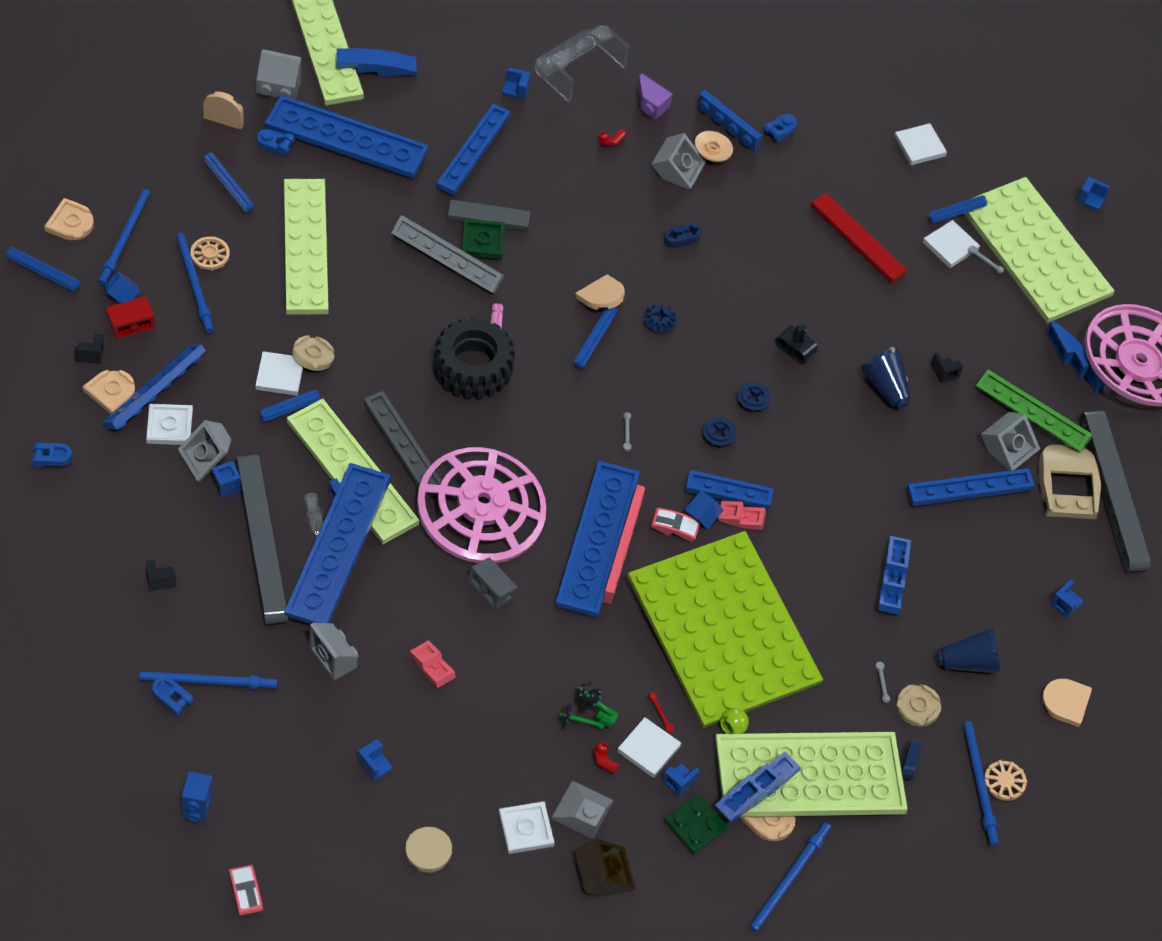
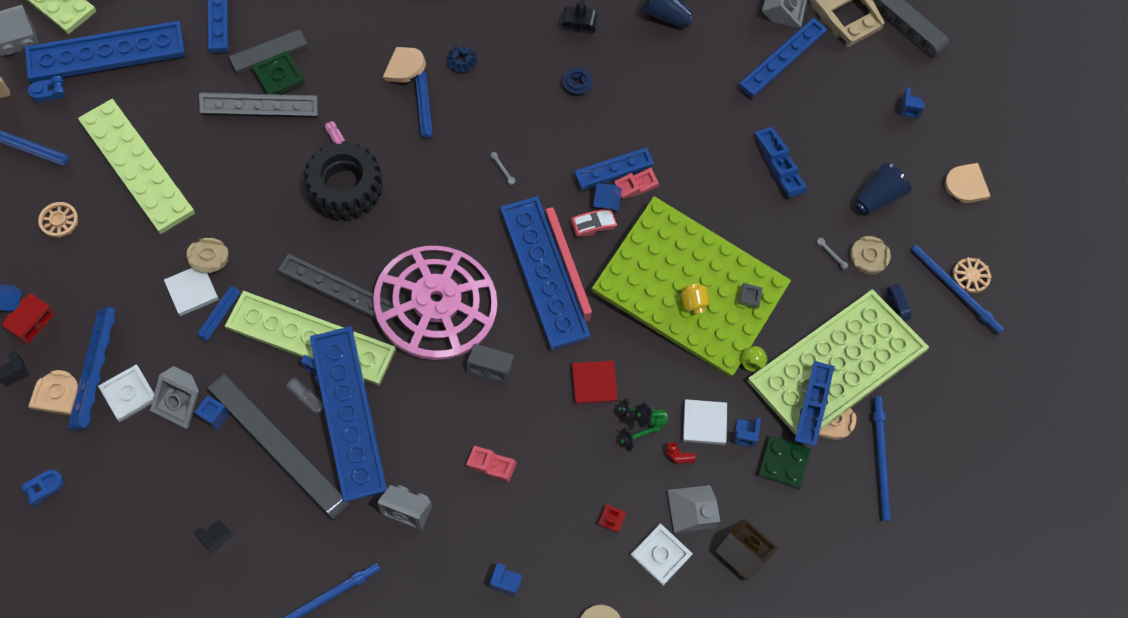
camera: 30 degrees left, 10 degrees up
(204, 312) = (89, 275): blue bar -> none
(504, 772) = (612, 519): none -> red tile
(574, 655) = (594, 382): none -> red tile
(669, 728) = (707, 395): red hinge -> none
(715, 635) = (695, 298): none -> yellow head
(719, 424) = (567, 120): dark blue gear -> none
(770, 666) = (750, 295): none -> dark grey tile

